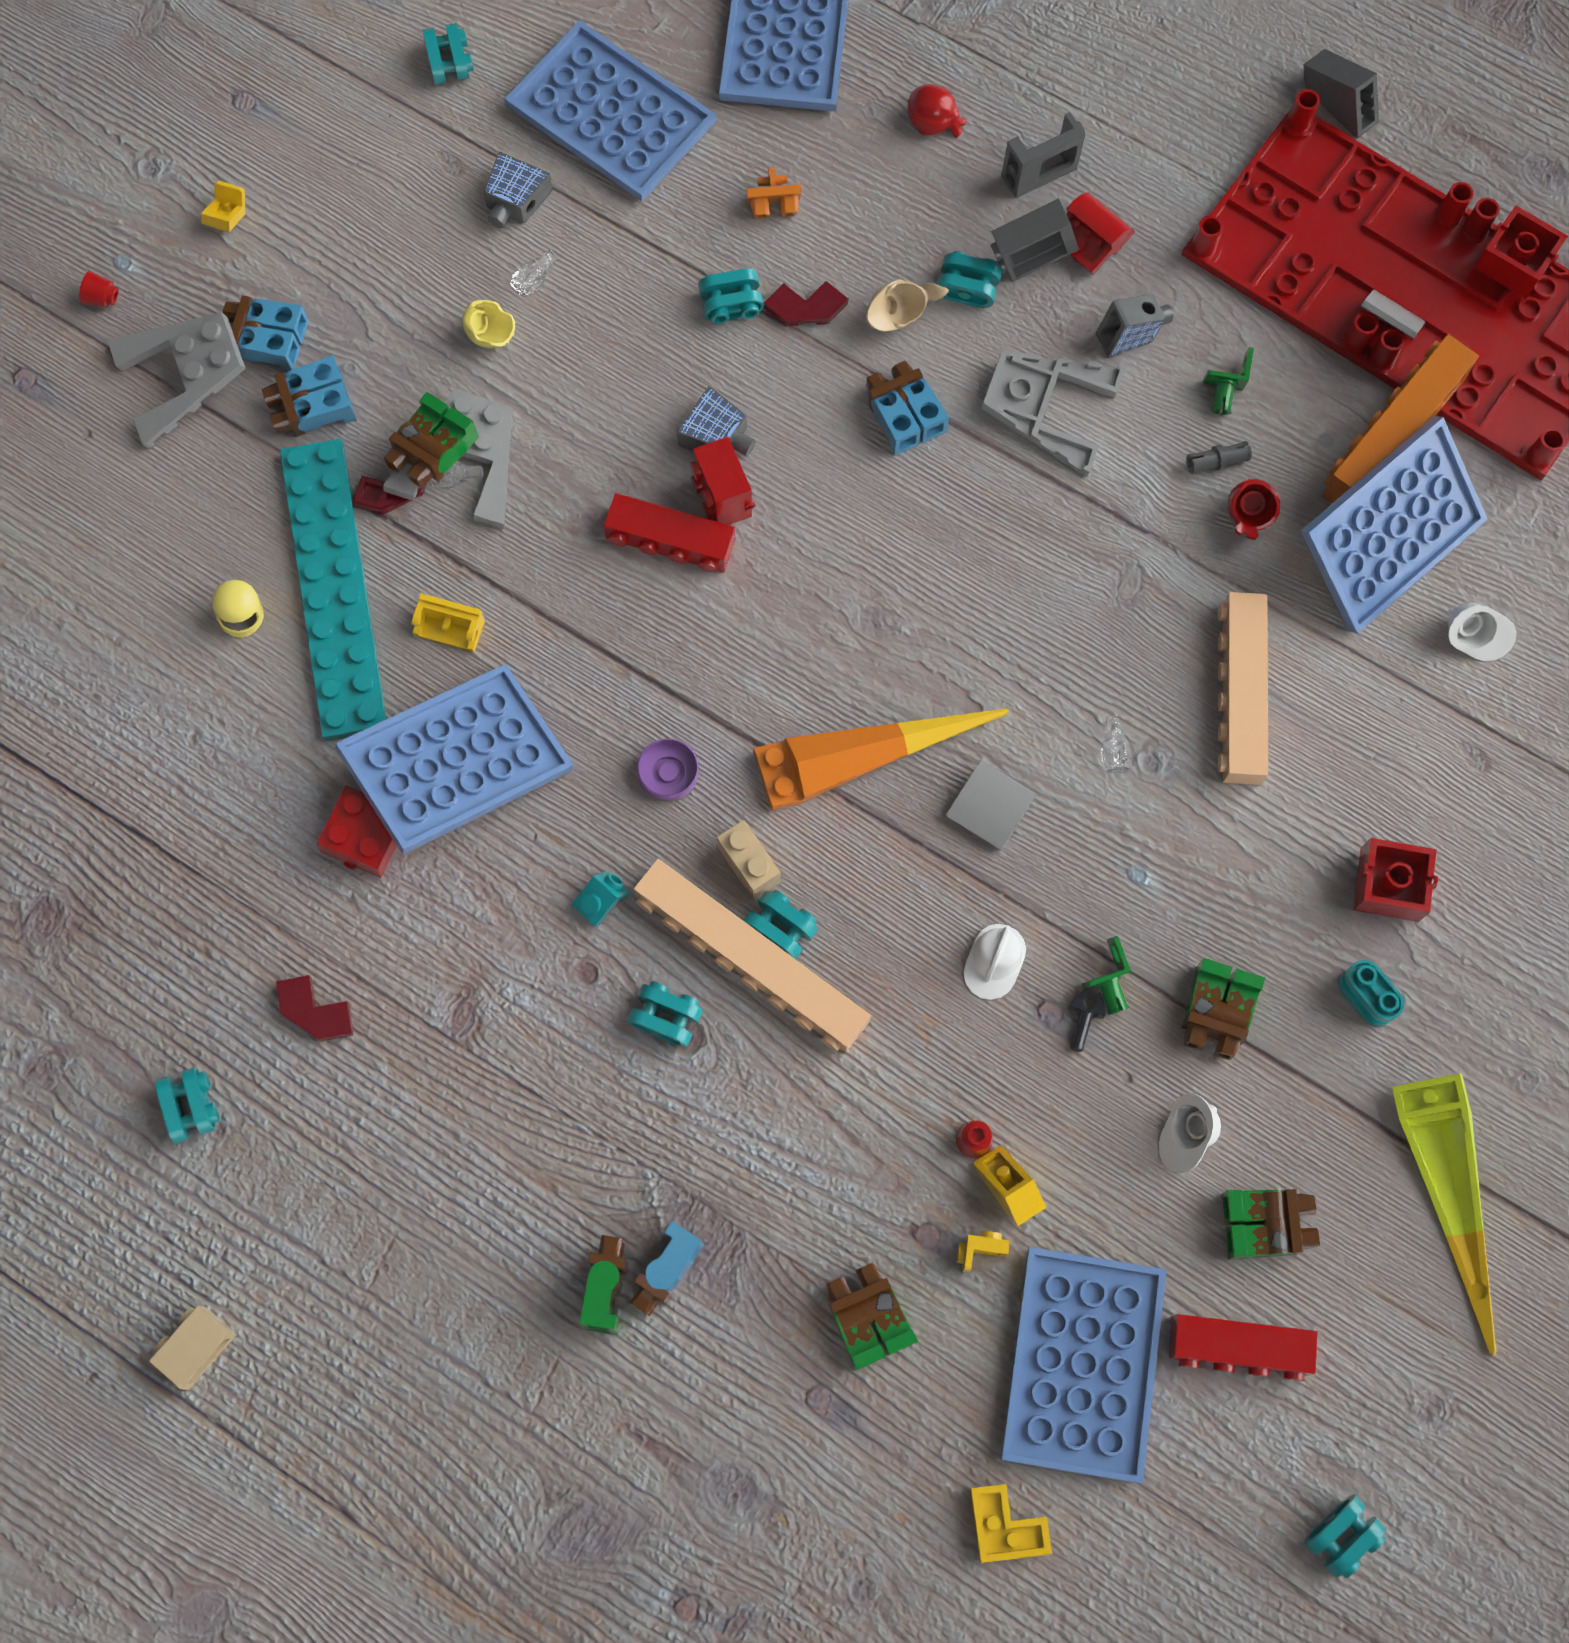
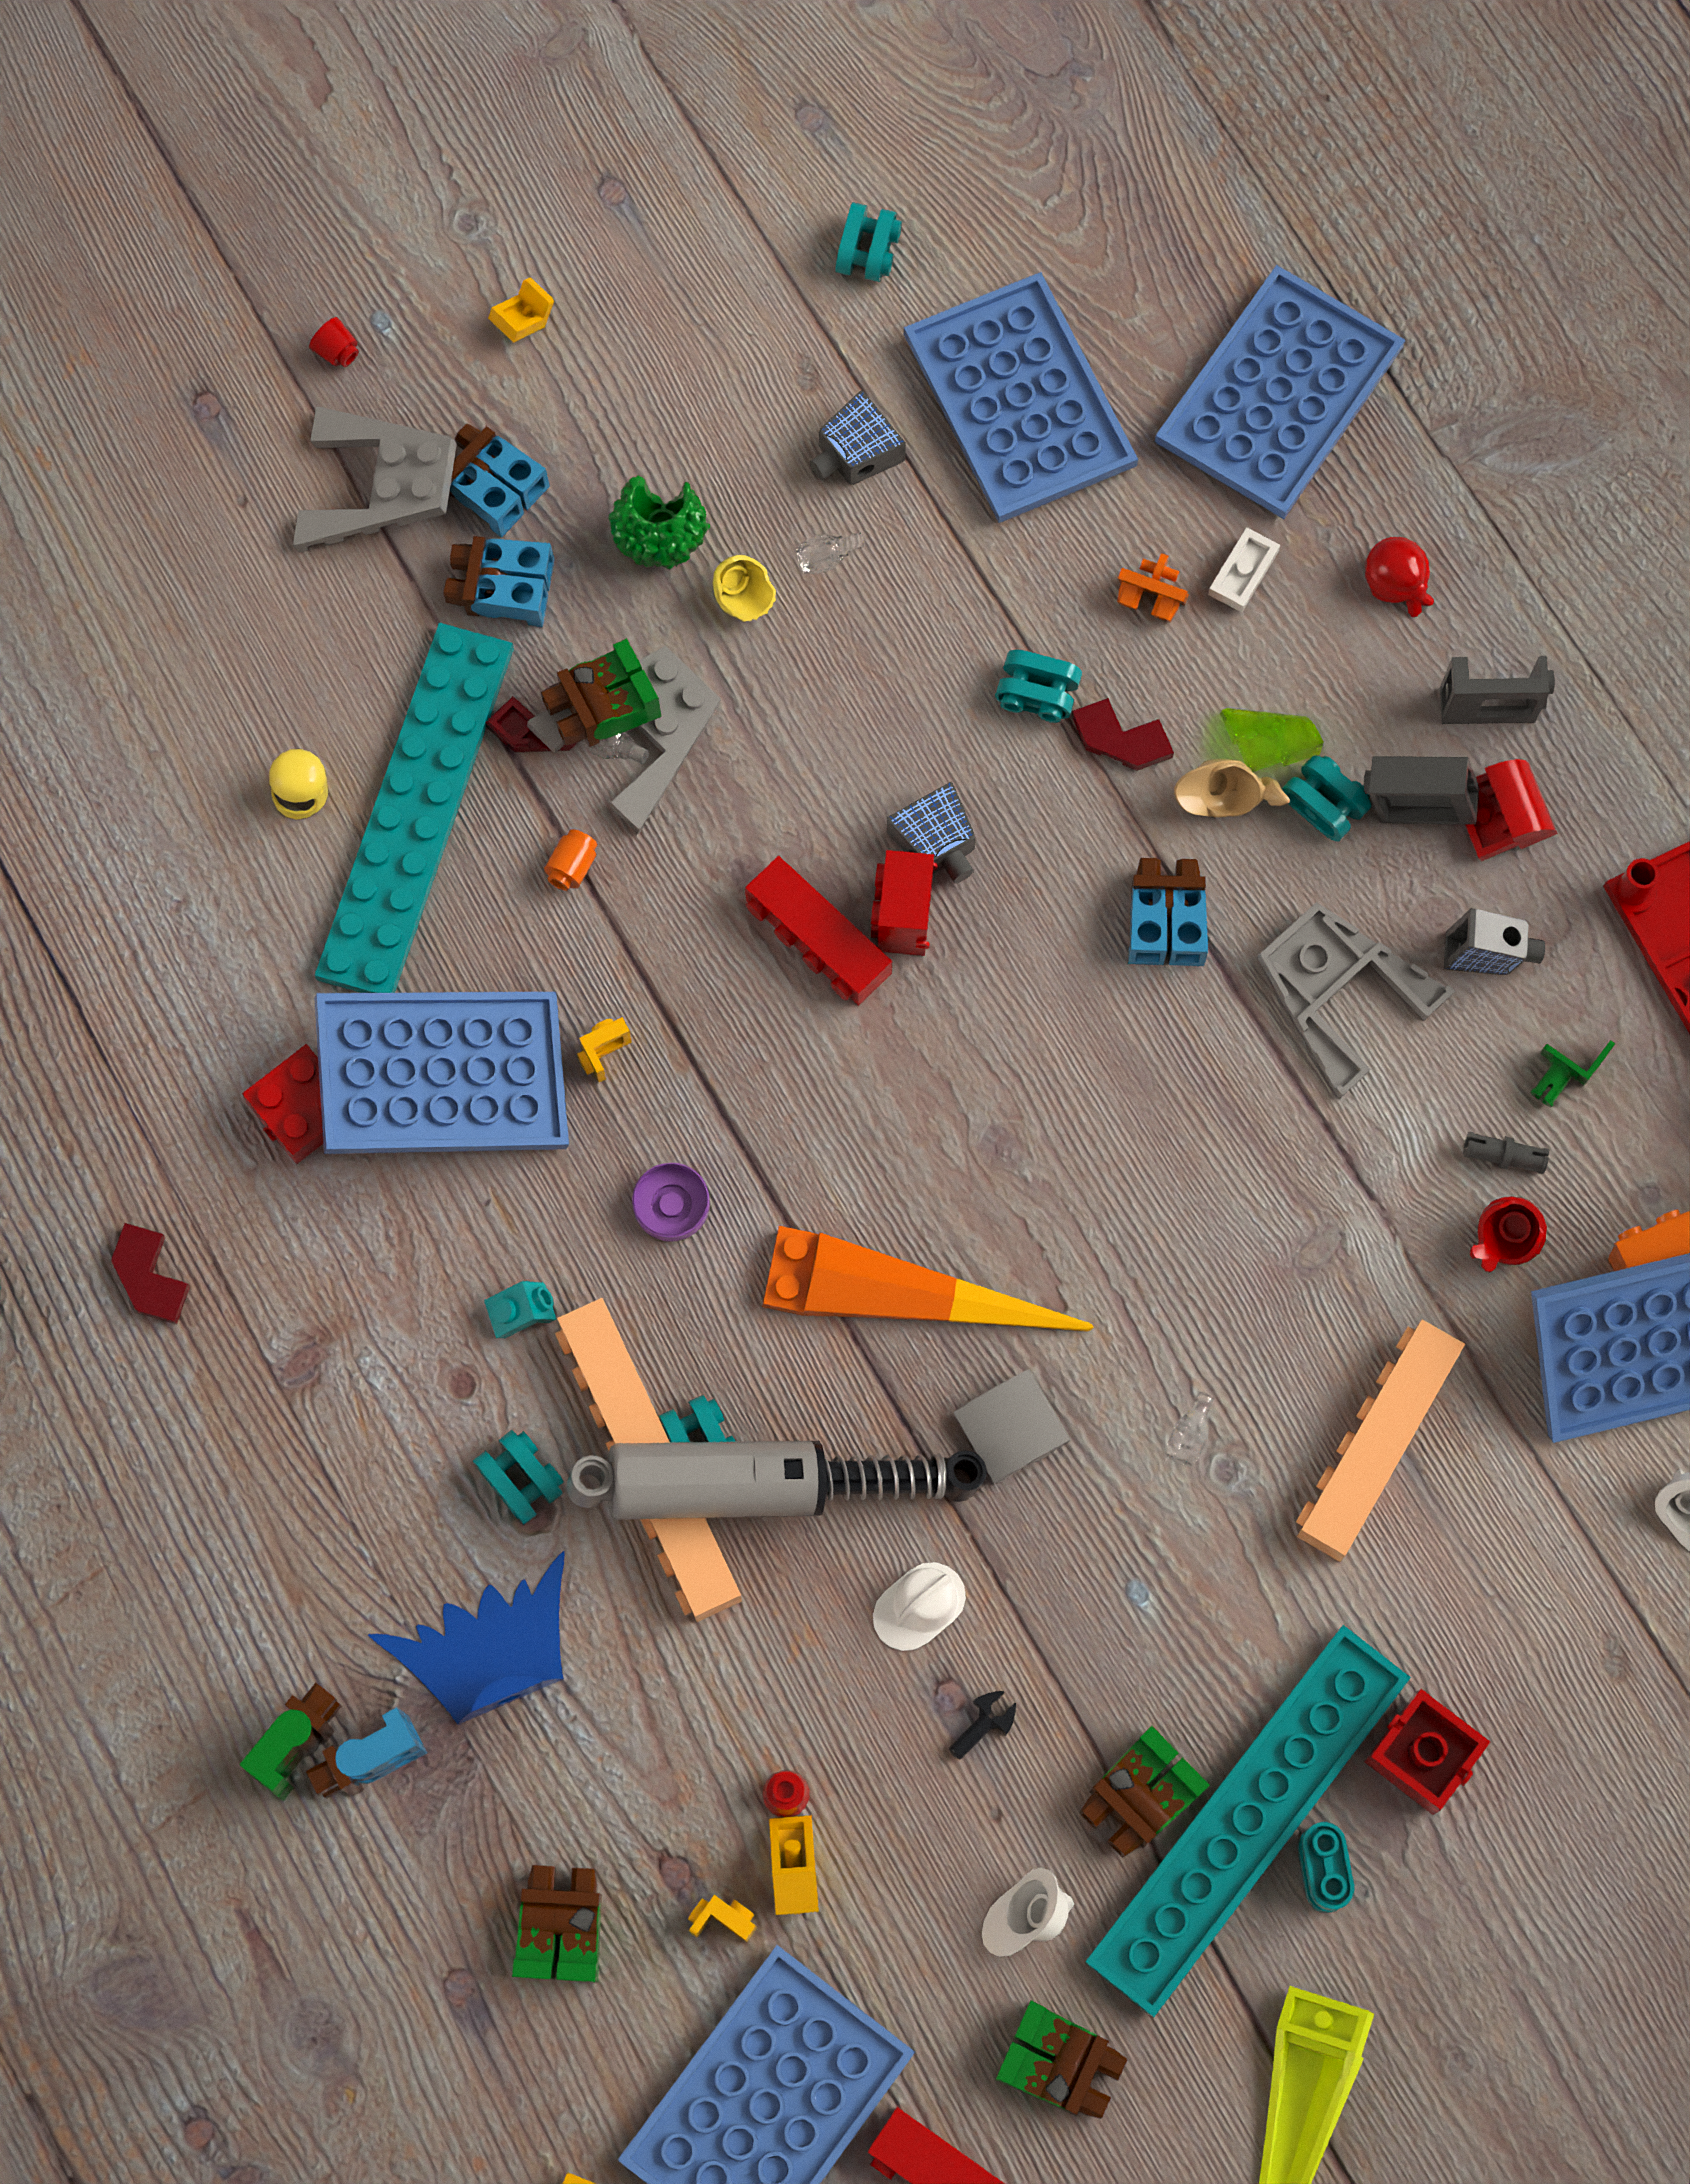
camera: 30 degrees right, 0 degrees up
(406, 313) = (657, 531): none -> green hair
(447, 622) = (517, 913): yellow hinge -> none
(466, 568) = (571, 860): none -> orange brick
(558, 680) = (603, 1039): none -> yellow bracket
(713, 1153) = (490, 1657): none -> blue piece
(748, 859) = (703, 1350): tan piece -> none
(828, 155) = (1244, 569): none -> white plate
(839, 928) = (756, 1479): none -> light grey piece
(908, 258) = (1271, 737): none -> clear neon green slope
(1109, 983) = (1032, 1700): green bracket -> none
(1300, 992) = (1247, 1821): none -> teal plate

